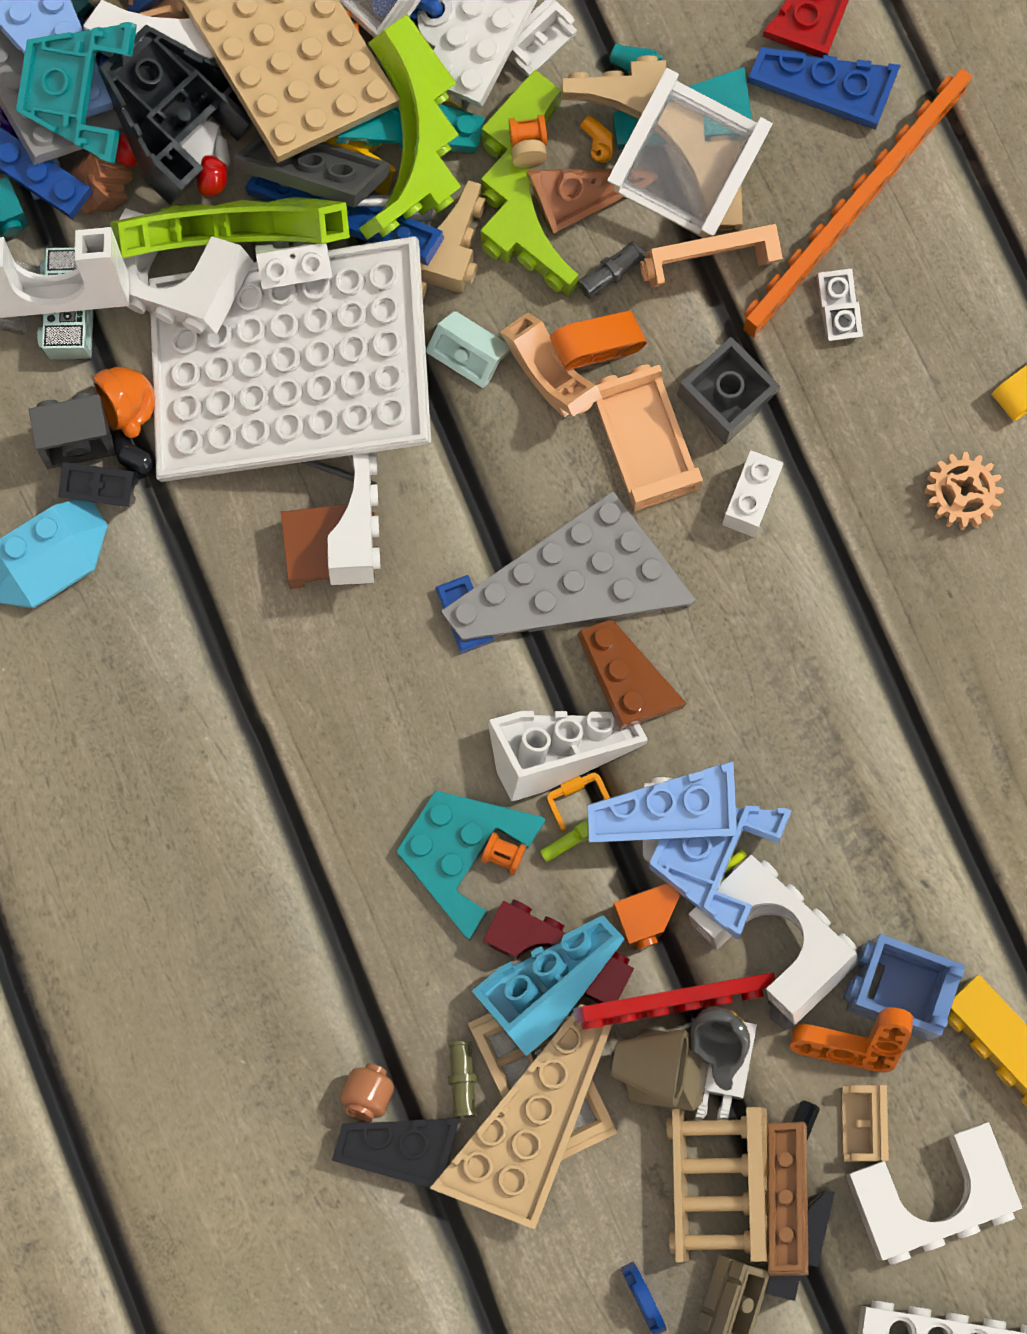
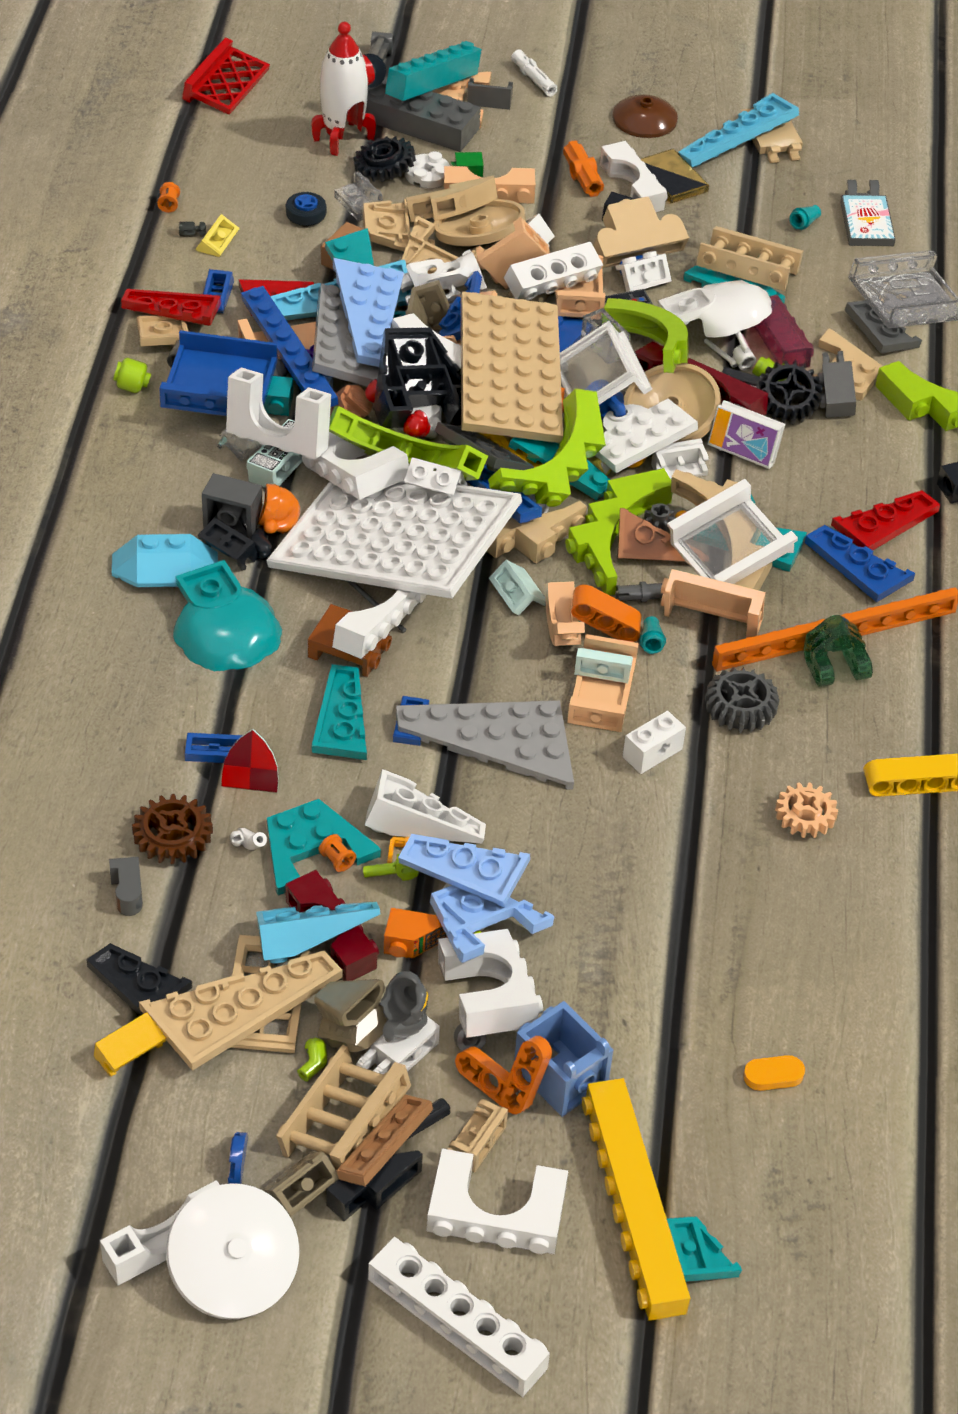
camera: 30 degrees right, 30 degrees down
(59, 82) = (358, 328): teal wing -> none
(169, 598) = (223, 621): none -> teal animal
(280, 798) = (214, 752): none -> blue tile
(304, 961) = (171, 821): none -> reddish brown gear
(317, 1043) = (128, 892): none -> dark grey leg
(339, 796) = (250, 765): none -> shield
(367, 1093) = (140, 935): nougat head -> none
(393, 669) = (340, 720): none -> teal wing
(397, 890) = (249, 839): none -> white arm
(448, 1237) = (128, 1043): none -> yellow hinge
(462, 1079) = (212, 962): olive pin -> none
(528, 130) = (635, 489): orange bush -> none
(529, 153) = (627, 498): tan tile -> none
(578, 145) = (659, 516): none -> dark grey gear
(626, 676) = (496, 802): dark orange wing -> none
(634, 411) = (603, 665): none -> light aqua panel
(646, 1127) = (317, 1058): none -> lime arm
(659, 332) = (652, 636): none -> teal cone
(671, 1001) = (368, 960): red plate -> none
(727, 390) = (674, 678): dark grey slope -> none
(823, 372) = (742, 699): none -> dark grey gear
(839, 305) = (789, 675): white slope -> none
(869, 233) = (836, 635): none -> clear green piece

